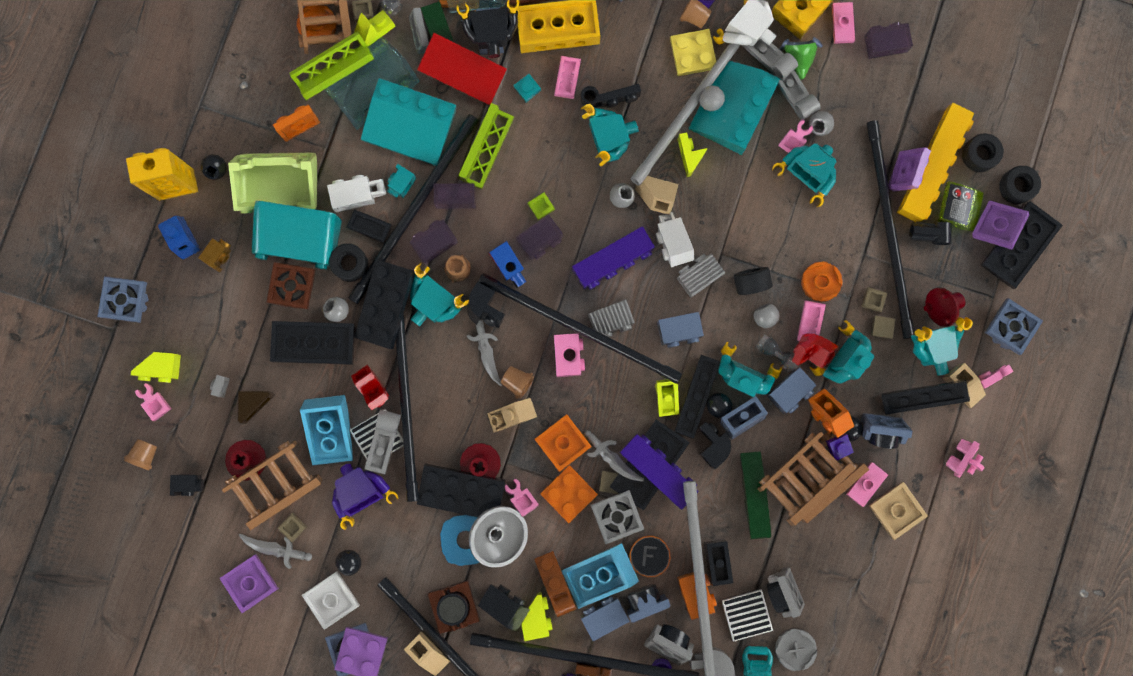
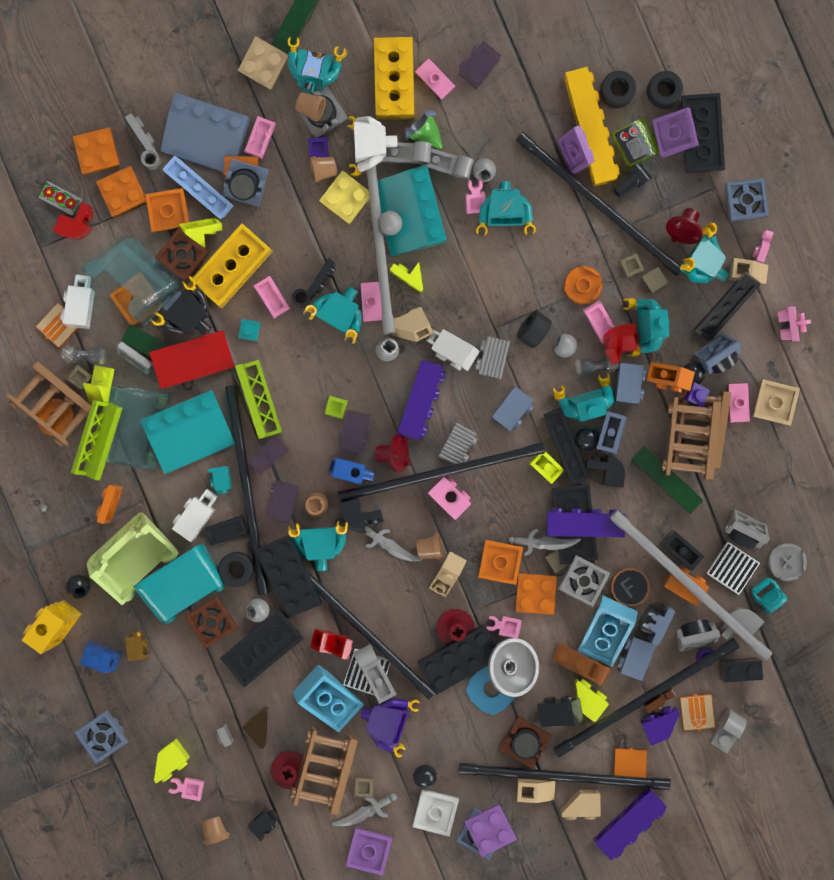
camera: 40 degrees left, 5 degrees up
(556, 281) = (396, 453): none -> dark red piece
(641, 148) = (371, 302): none -> bright pink plate

